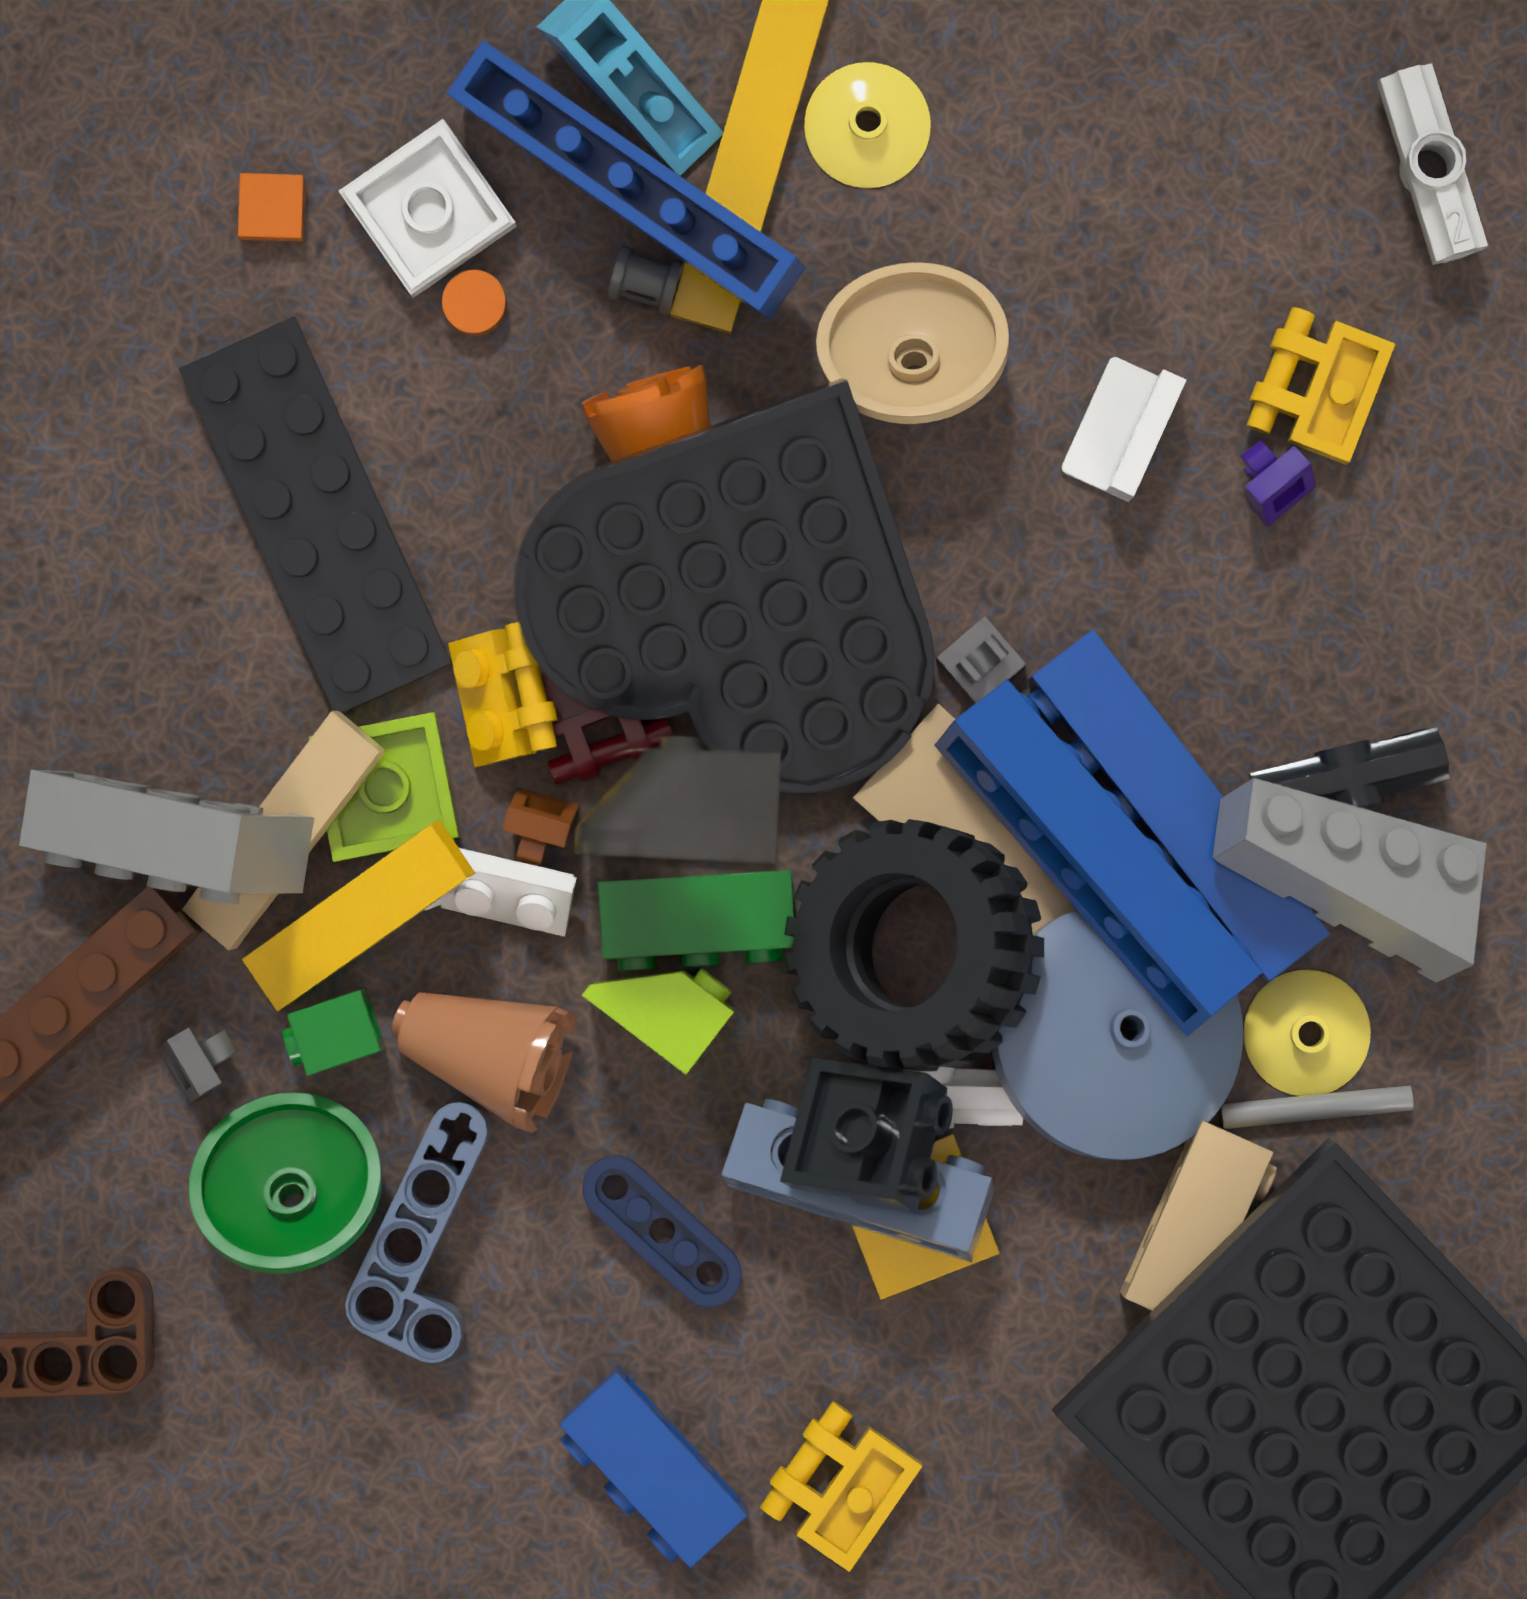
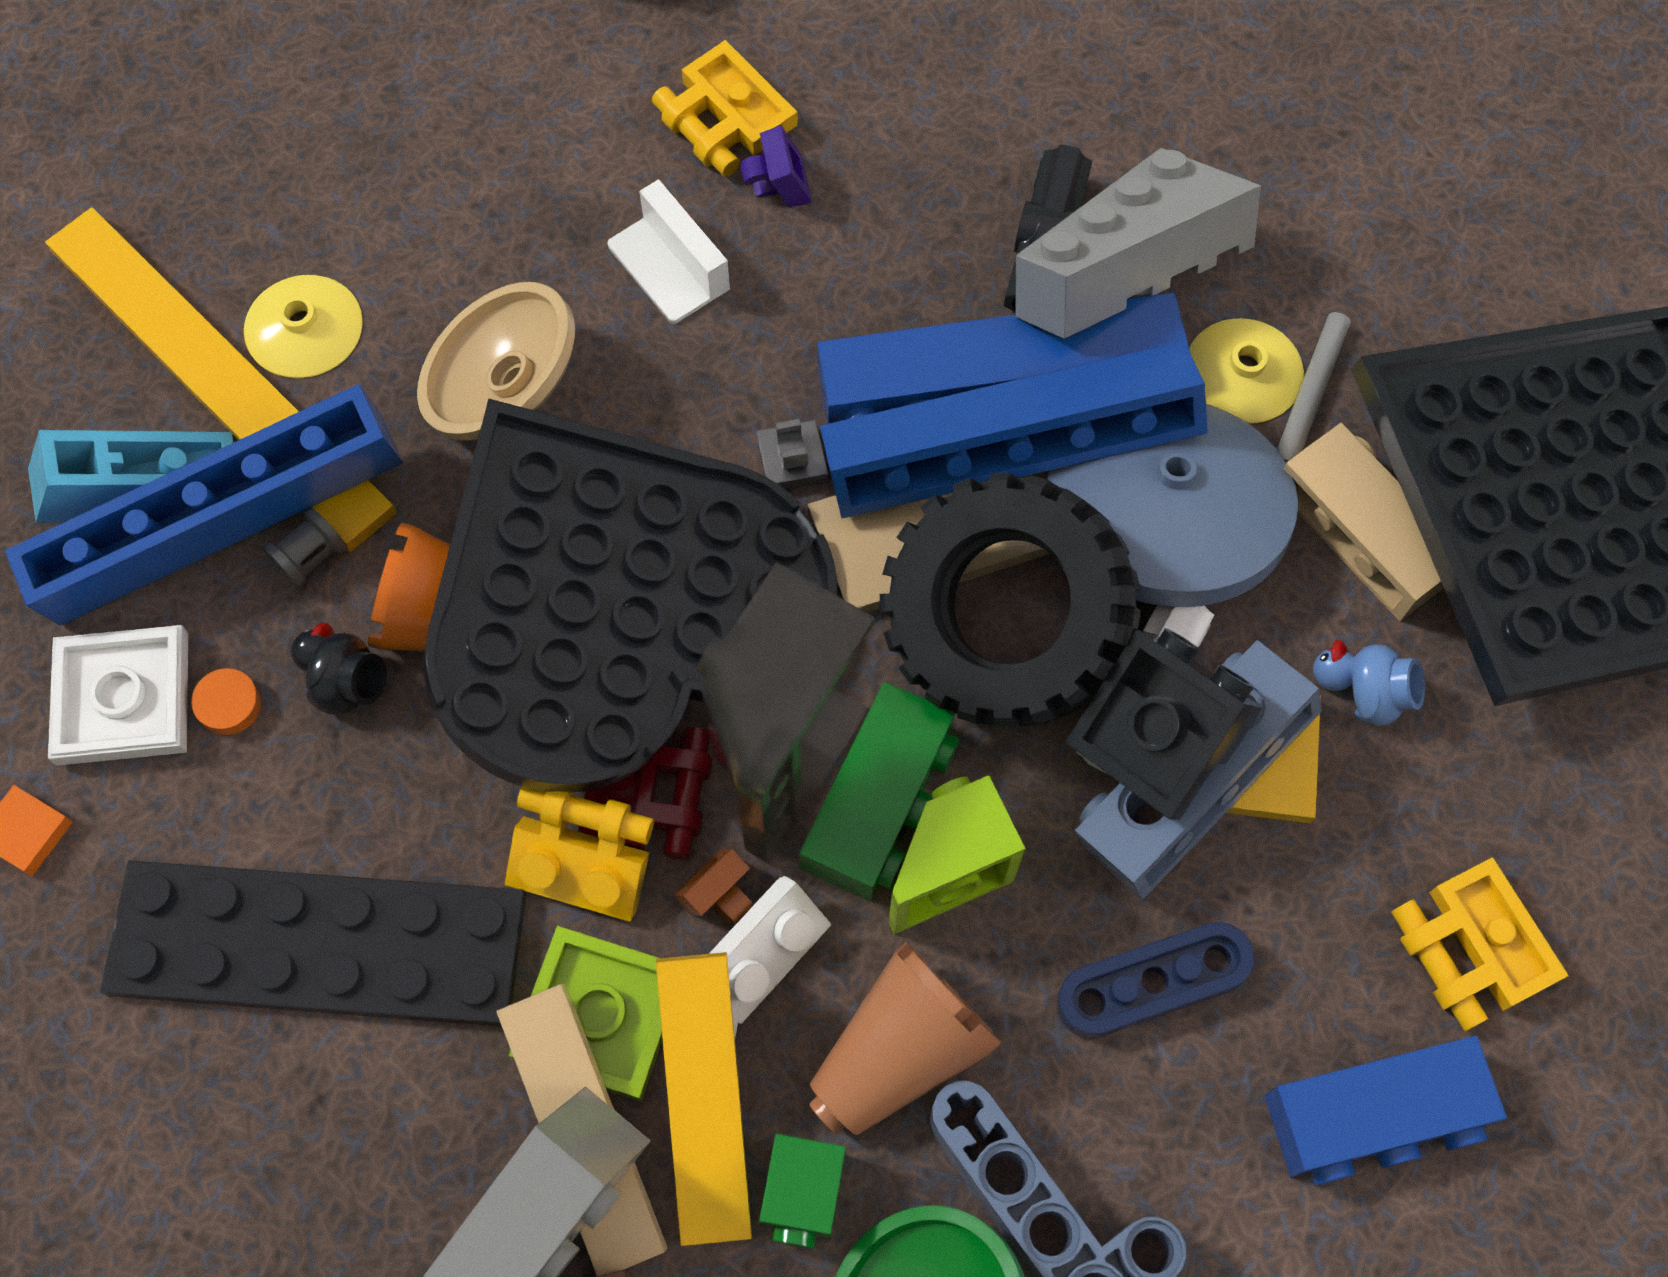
camera: 65 degrees left, 20 degrees down
(554, 388) = (338, 669): none -> black animal
(1039, 1298) = (1379, 679): none -> medium blue animal

